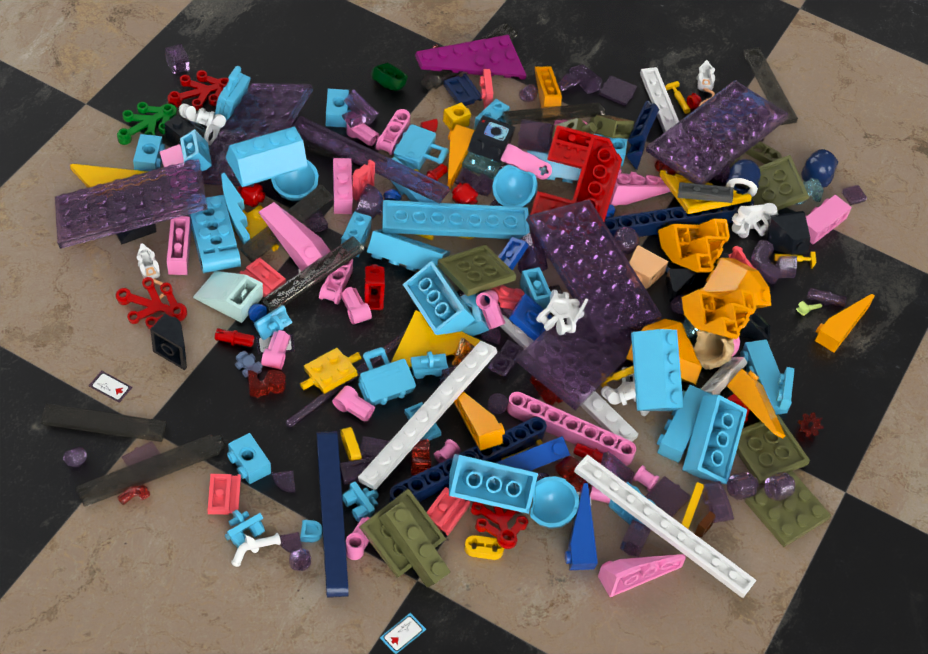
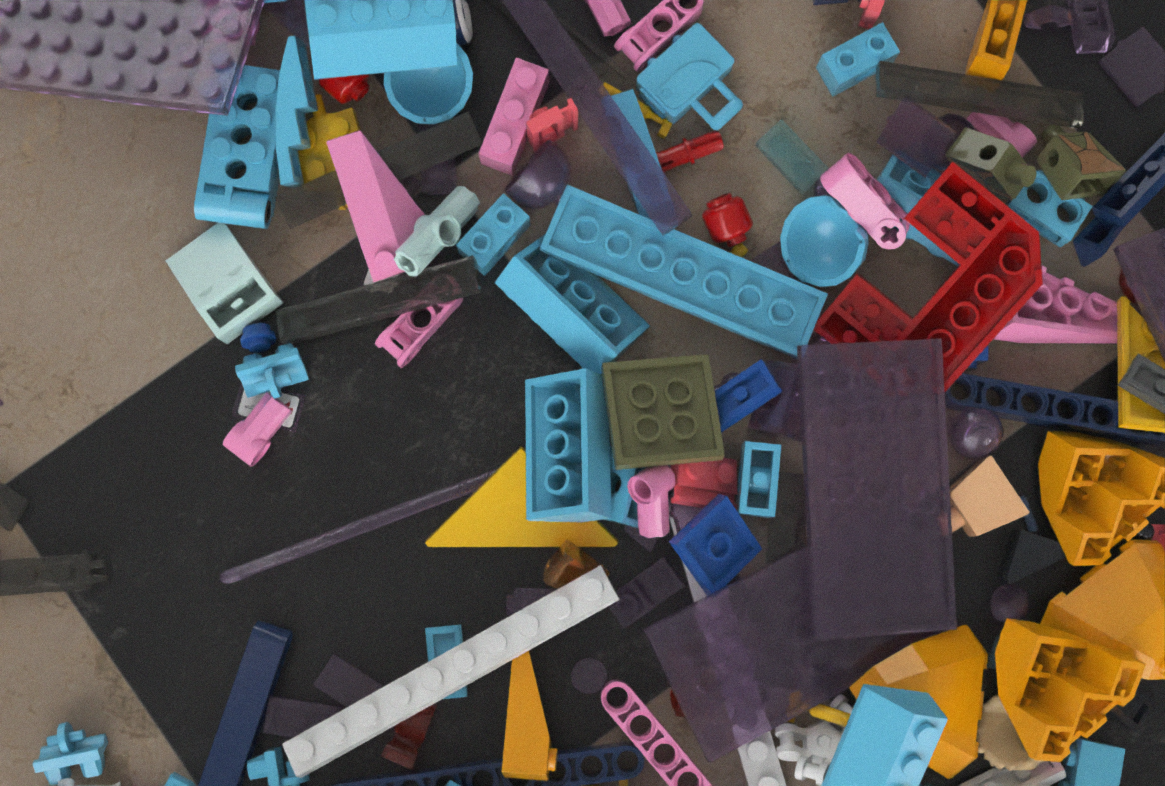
camera: 30 degrees right, 30 degrees up
(148, 265) = (109, 178): white animal -> none
(154, 305) = (93, 253): red plant -> none
(169, 340) = (83, 352): black slope -> none
(179, 246) = (171, 156): bright pink brick -> none
(224, 494) = (65, 677): coral plate -> none
(234, 337) = (200, 373): red axle -> none
(245, 448) = (139, 609): medium azure brick -> none
(248, 363) = (202, 431): sand blue piece -> none
(265, 274) = (296, 265): coral plate -> none
(273, 382) = (227, 489): clear red leg -> none
(284, 480) = (175, 685): clear purple tile -> none
(328, 237) = (436, 231): none -> light aqua piece
(330, 370) = (332, 504): yellow plate -> none
(349, 401) = (338, 578): bright pink piece -> none
(350, 444) = (304, 665): yellow beam -> none
(356, 308) = (430, 395): bright pink piece -> none
(374, 280) = (472, 370): red torso -> none
(386, 381) = (412, 566): medium azure piece -> none
(392, 194) = (595, 171): blue plate -> none
(428, 365) = (501, 562): medium azure hips -> none
(430, 125) = (736, 32): red tile -> none
(447, 451) = (457, 743): bright pink bush -> none
(455, 115) = (785, 40): yellow brick -> none
(458, 147) = (771, 98): light orange slope -> none
(481, 183) = (762, 190): clear purple slope -> none
(491, 138) = (830, 115): black slope -> none
(528, 93) = (958, 19): clear purple piece -> none
(562, 308) = (770, 568): white piece -> none

